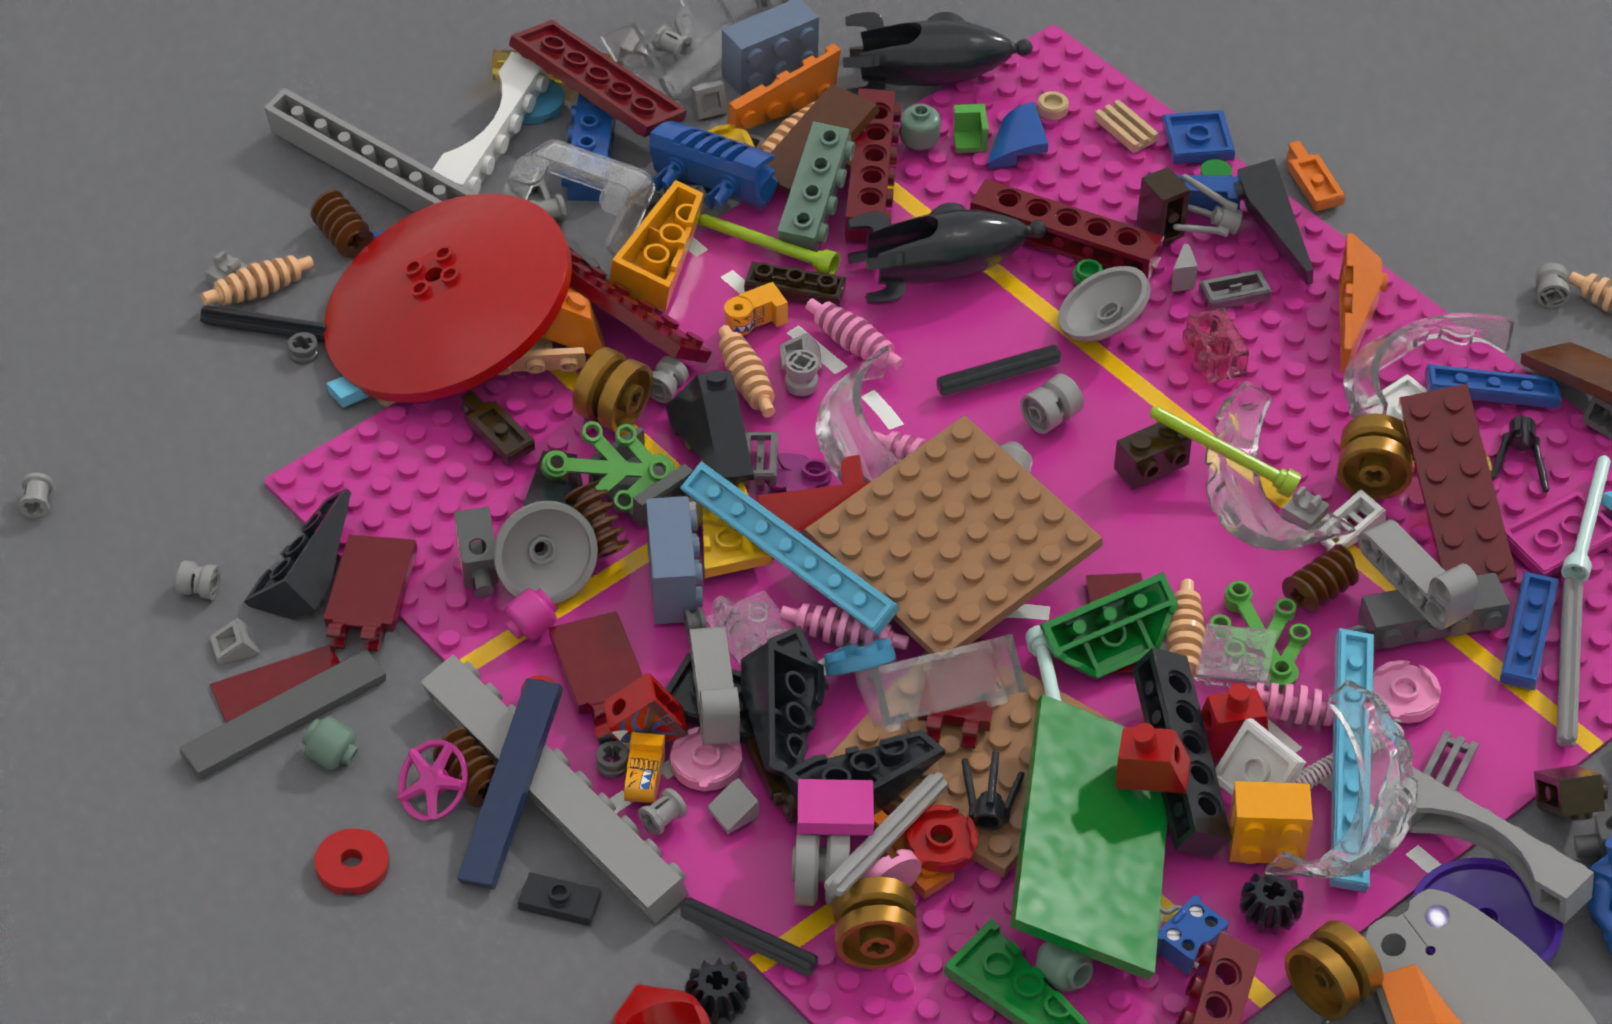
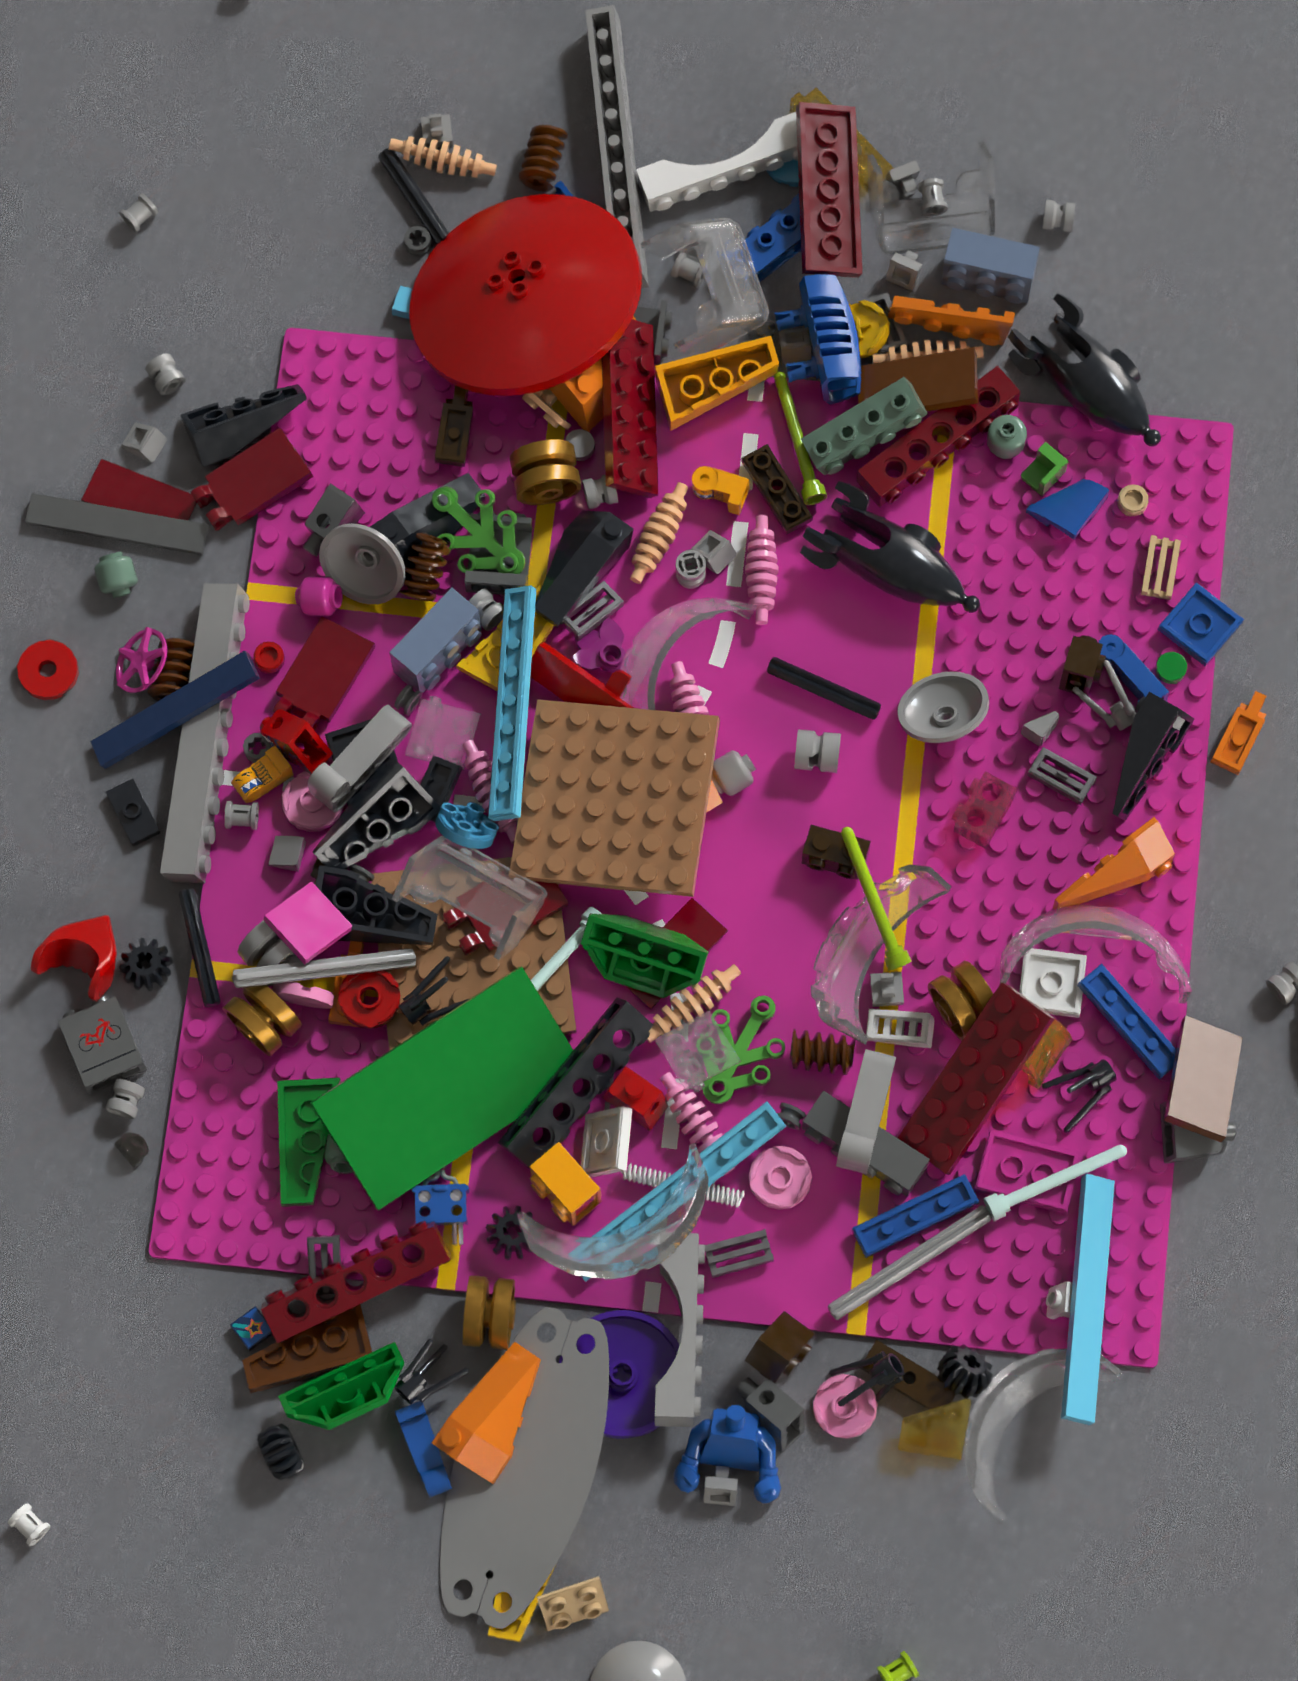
camera: 50 degrees right, 25 degrees up
(1073, 230) = (1020, 690): dark red brick -> none
(1085, 269) = (977, 666): green plate -> none
(1152, 760) = (522, 1075): red torso -> none

